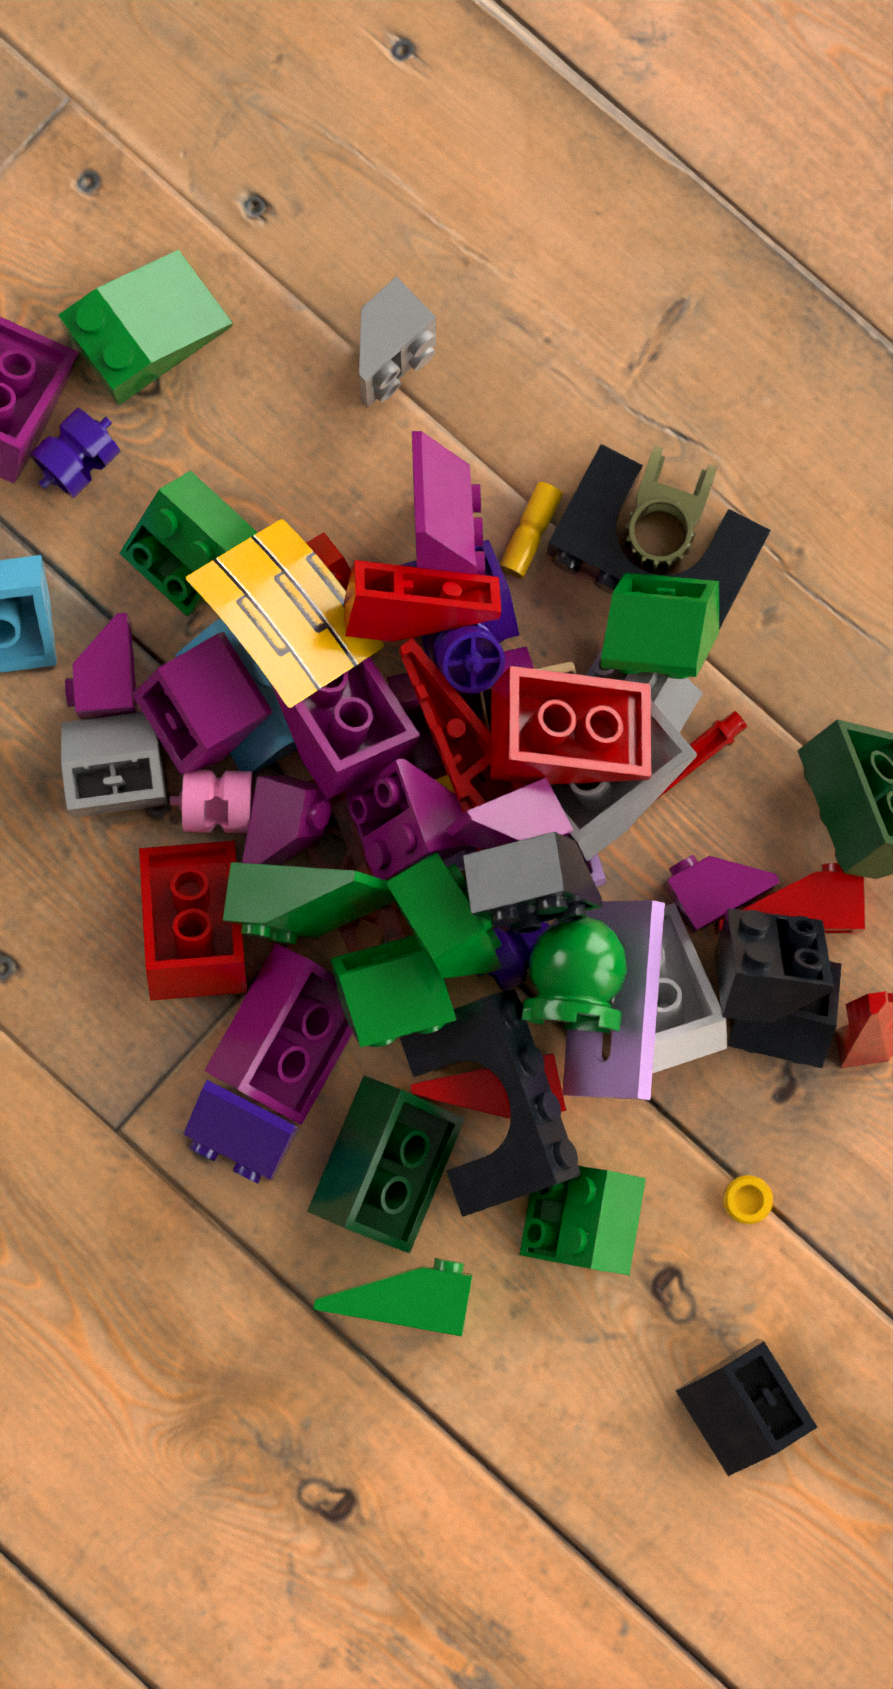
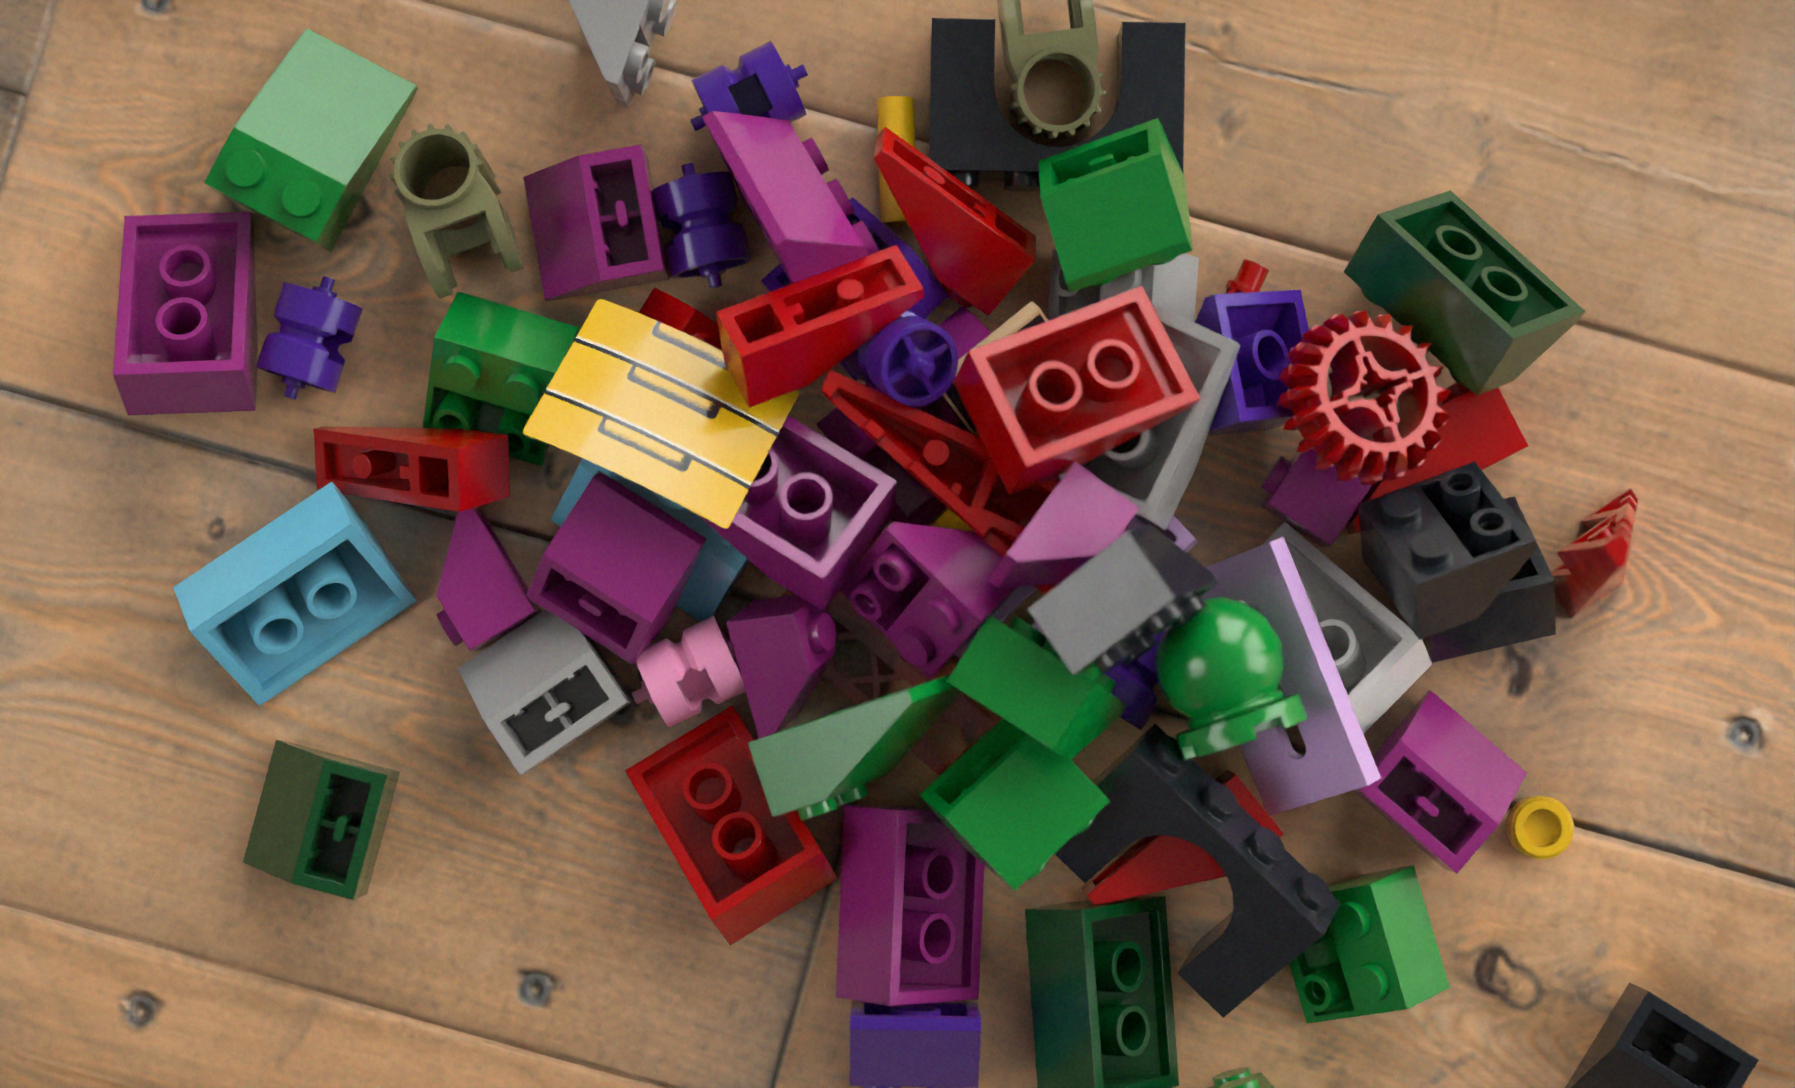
camera: 25 degrees left, 5 degrees up
(102, 571) = (414, 465): none -> red slope
(204, 373) = (413, 168): none -> olive piece
(306, 471) = (596, 223): none -> magenta slope
(377, 498) = (698, 214): none -> dark purple wheel
(458, 432) = (756, 88): none -> dark purple wheel
(548, 598) = (964, 237): none -> red slope
(692, 1130) = (1442, 783): none -> magenta slope
(714, 787) = (1266, 329): none -> dark purple slope
(750, 855) = (1363, 433): none -> red gear

